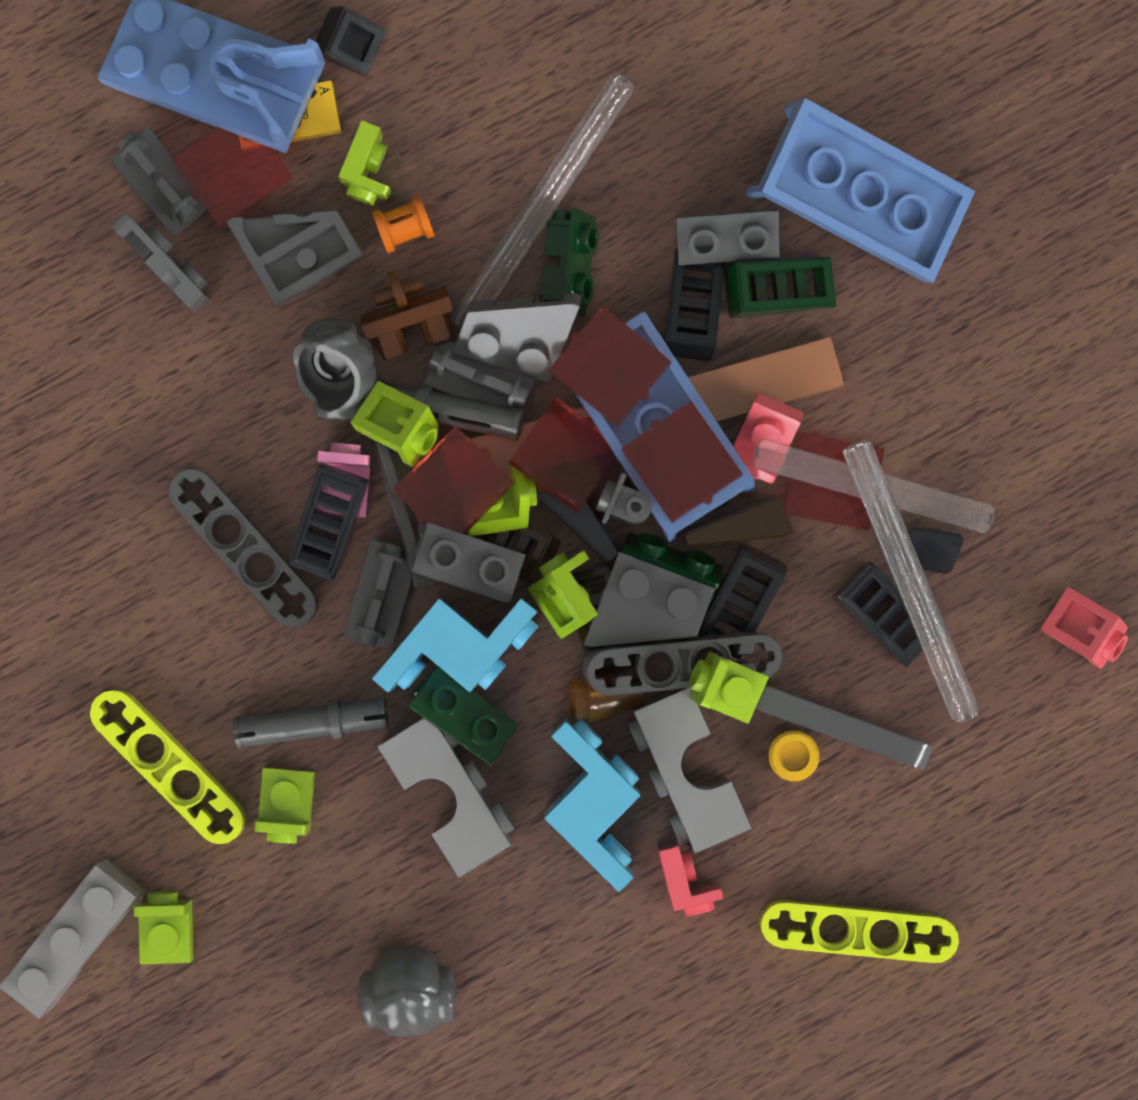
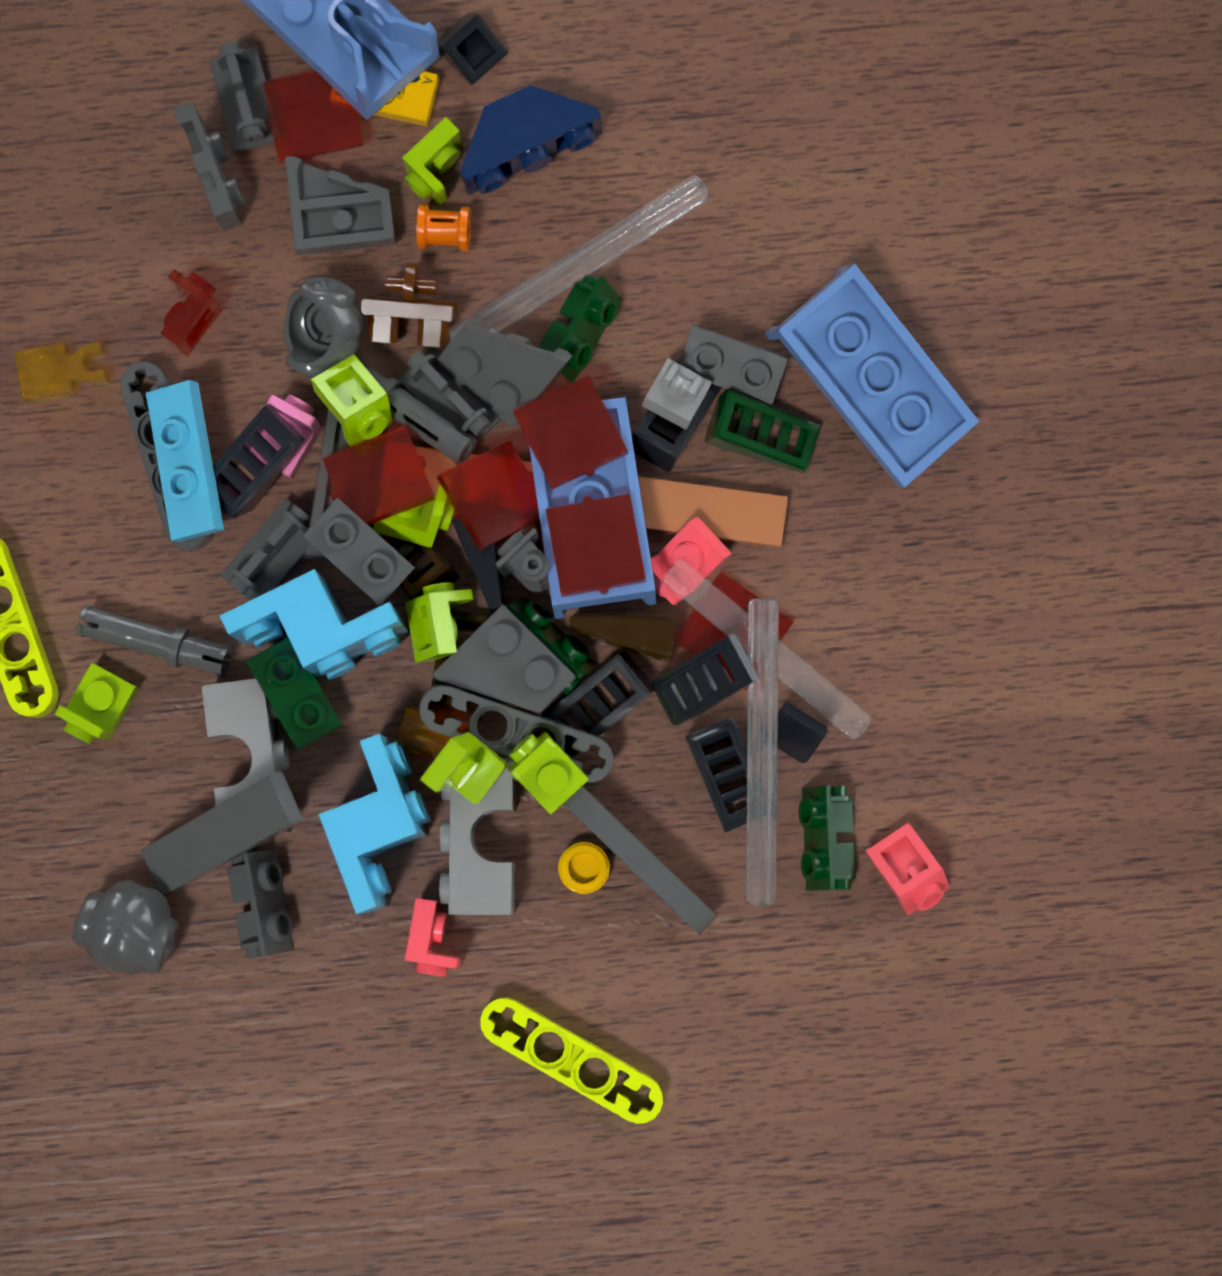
camera: 35 degrees right, 5 degrees down
(100, 517) = (51, 371): none -> clear yellow plate
(207, 413) = (190, 319): none -> clear red bracket
(266, 547) = (184, 461): none -> medium azure plate
(439, 103) = (524, 134): none -> dark blue slope
(461, 873) = (222, 833): none -> dark grey tile
(532, 934) = (267, 926): none -> dark grey hinge
(657, 716) = (466, 767): none -> lime bracket
(689, 287) = (676, 393): none -> light grey tile
(810, 554) = (703, 680): none -> black slope
(1007, 654) = (824, 861): none -> dark green hinge

